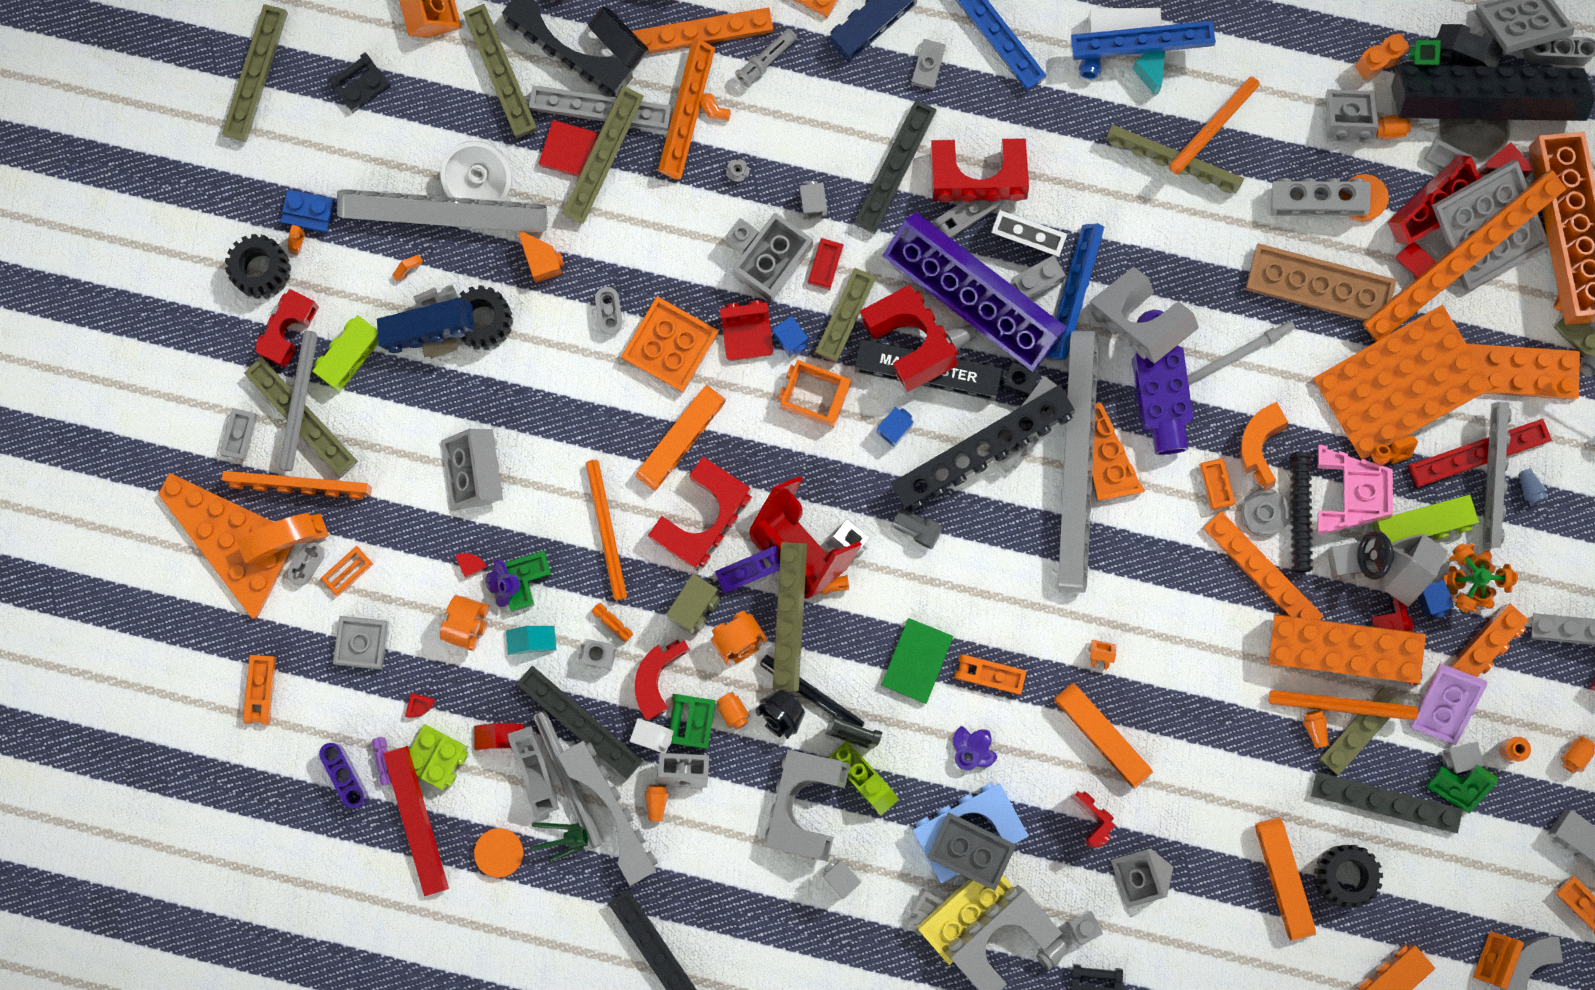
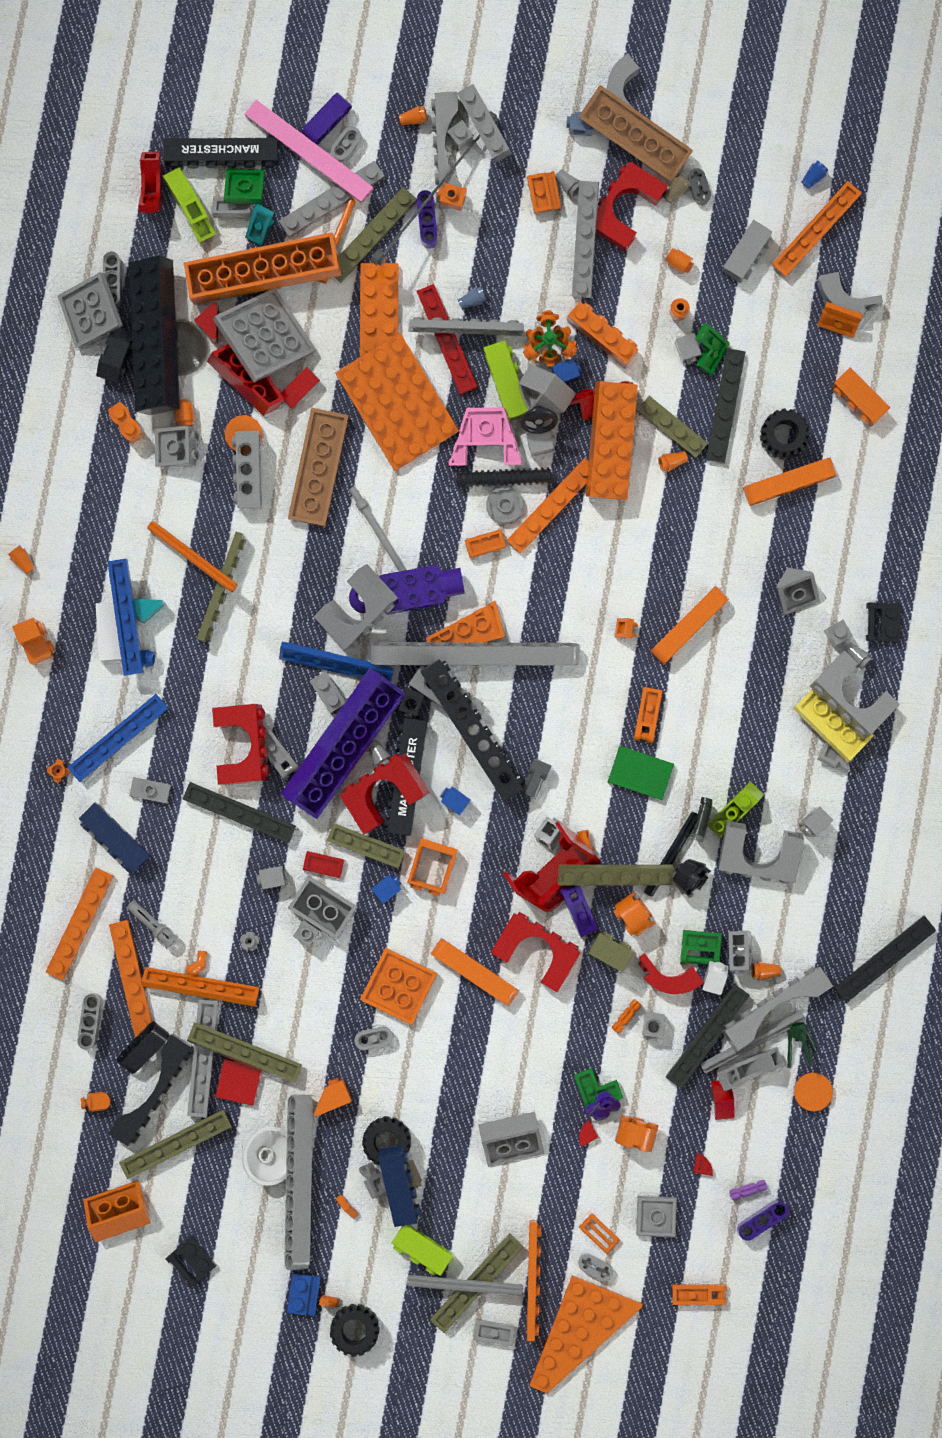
camera: 90 degrees left, 5 degrees up
(254, 73) = (188, 1350): olive plate -> none
(281, 535) = (578, 1286): orange arch -> none
(292, 309) = (419, 1310): red arch -> none
(416, 821) = (793, 1159): red tile -> none
(437, 757) = (743, 1148): lime plate -> none
(530, 639) = (644, 1080): teal slope -> none
(606, 530) = (553, 1026): orange axle -> none
(733, 711) = (690, 915): orange brick -> none
(746, 330) = (384, 924): red bracket -> none
(971, 851) = (788, 722): dark grey plate -> none
(976, 746) = (704, 723): dark purple plate -> none
(991, 804) = (774, 752): light blue arch -> none
(1029, 233) = (290, 701): white brick -> none
(1100, 834) = (768, 625): red bracket -> none
(1259, 429) = (441, 513): orange arch -> none
(1343, 705) = (654, 438): orange axle -> none
(1399, 451) = (450, 402): orange plate -> none
(1425, 52) = (123, 389): green brick -> none
(1442, 154) = (205, 372): light grey tile -> none
(1448, 704) = (648, 361): lavender tile -> none
(1464, 255) = (292, 355): orange plate -> none

